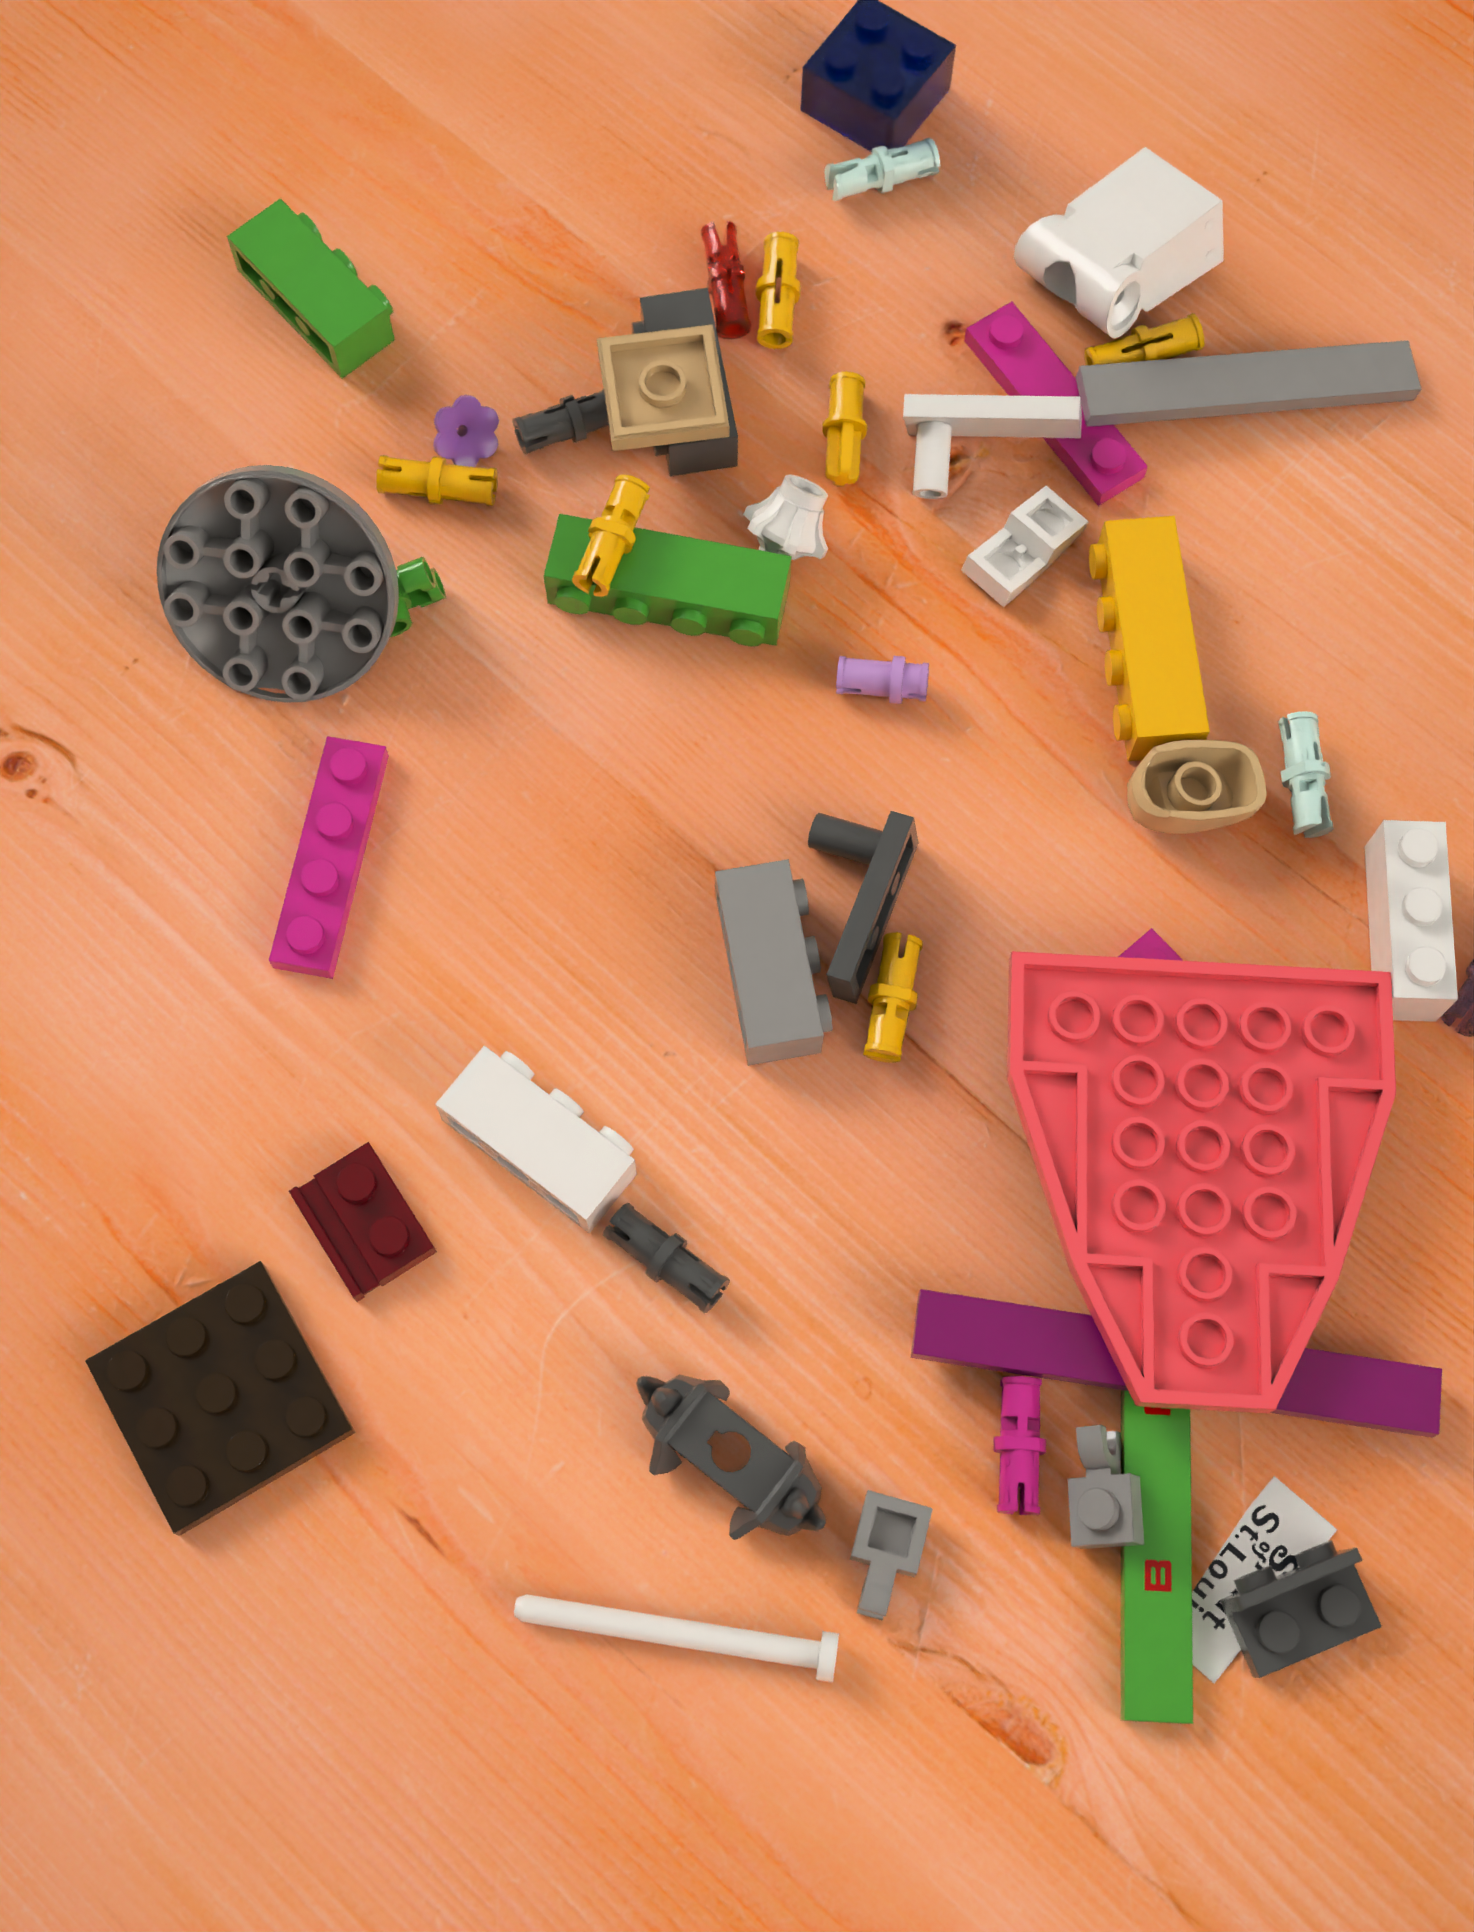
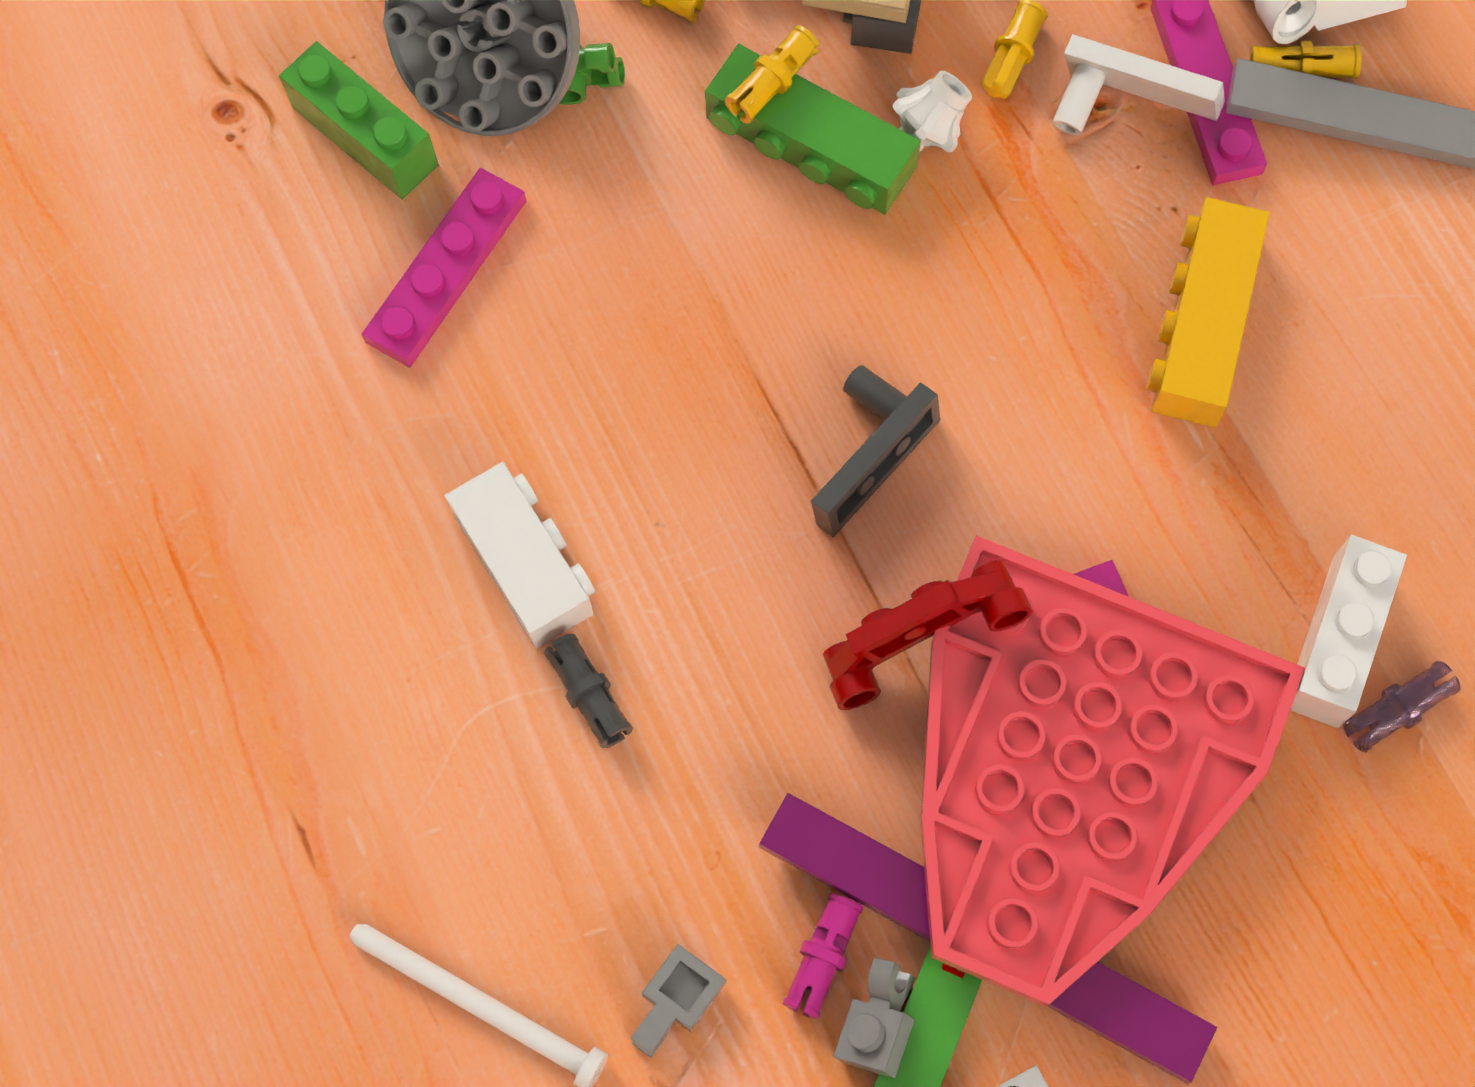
camera: 25 degrees right, 0 degrees up
(174, 727) = (359, 120): none -> bright green brick
(219, 1398) = (186, 674): dark brown plate -> none
(362, 1221) = (354, 573): dark red plate -> none
(771, 962) = (771, 476): light grey brick -> none
(773, 1486) = (600, 910): dark grey piece -> none
(883, 678) = (968, 273): lavender pin -> none
(892, 998) = (864, 542): yellow pin -> none
(1000, 1042) = (930, 609): none -> red plate
(1025, 546) = (1132, 200): white slope -> none
(1196, 786) = (1198, 450): tan piece -> none
(1305, 774) = (1303, 474): light aqua pin -> none

